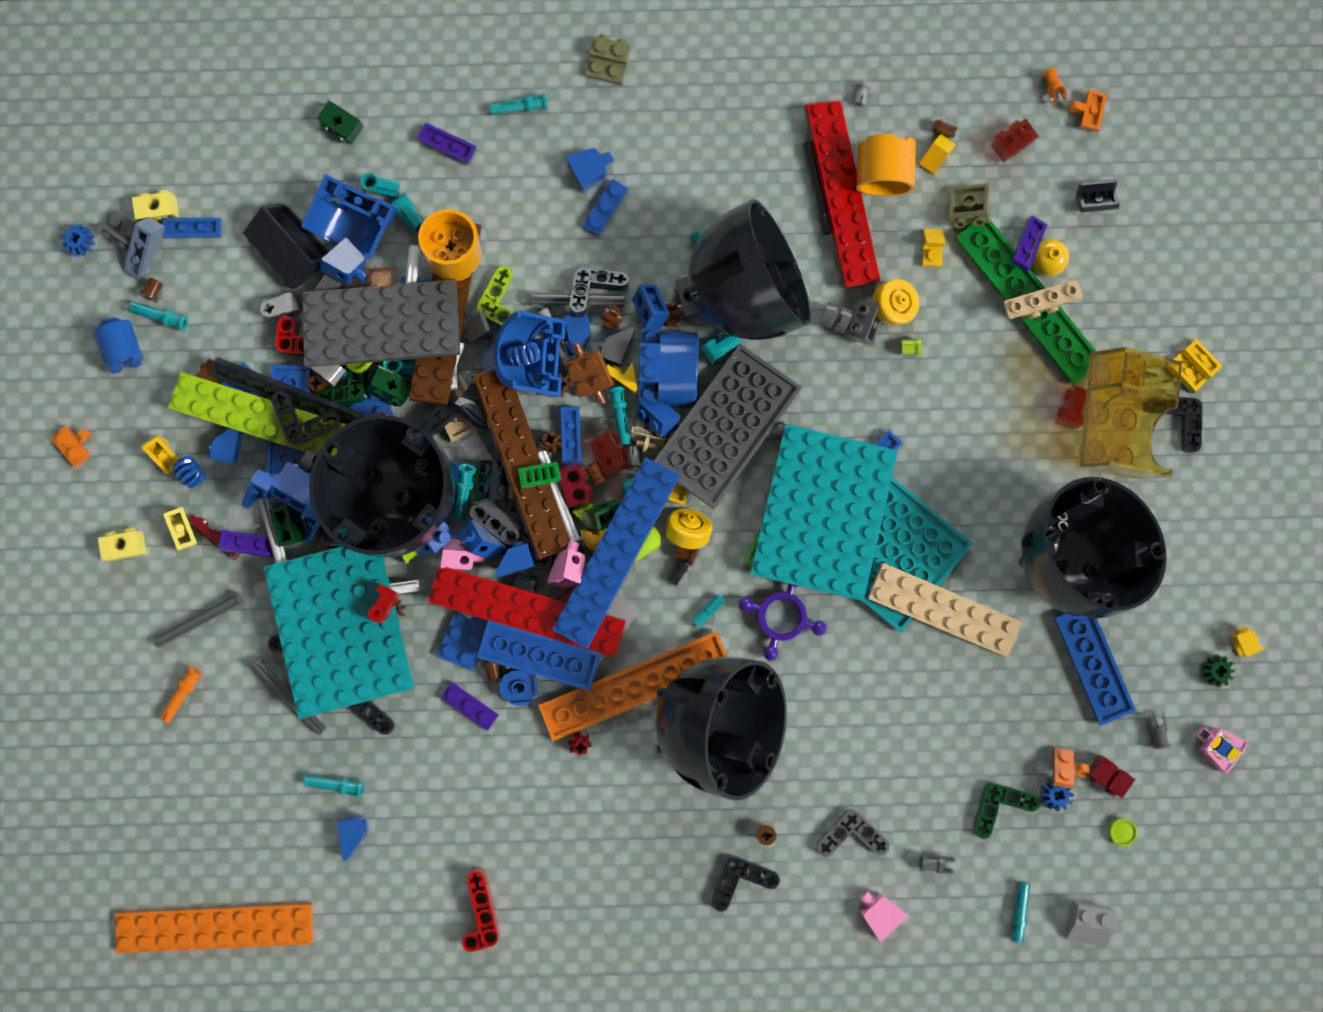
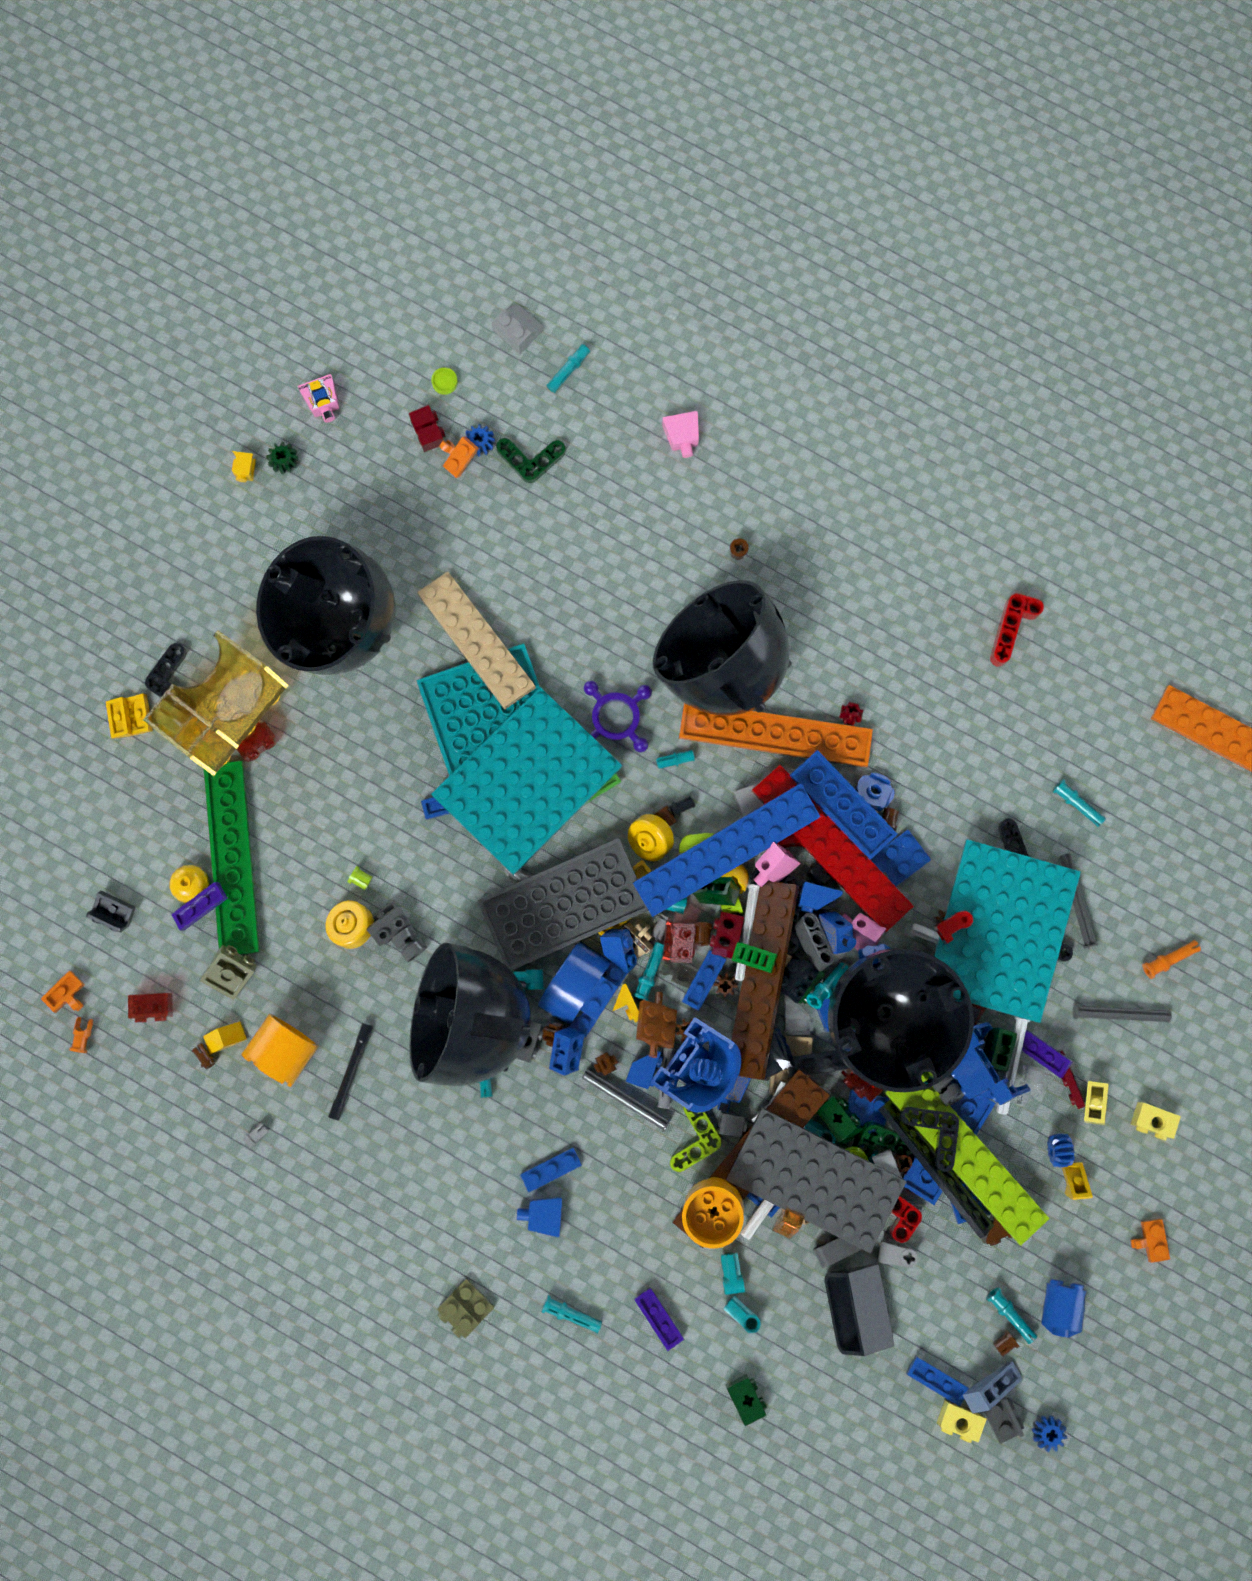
camera: 150 degrees left, 5 degrees down
(226, 447) = (1016, 1153): blue slope -> none
(345, 263) = (816, 1257): blue torso -> none
(351, 834) = (1086, 754): blue slope -> none
(357, 218) = (788, 1296): blue piece -> none
(469, 706) = (926, 801): dark purple plate -> none
(590, 281) = (605, 1108): black beam -> none
(616, 346) = (618, 1035): dark grey slope -> none
(735, 875) = (782, 533): black beam -> none
(840, 194) = (332, 1058): red plate -> none
(856, 829) = (661, 512): dark grey beam -> none
(932, 247) = (284, 956): yellow slope -> none
(935, 864) = (612, 445): dark grey piece -> none
(1043, 300) = (221, 846): tan bracket -> none
(1095, 667) = (382, 515): blue plate -> none
(1159, 734) = (364, 436): dark grey piece -> none

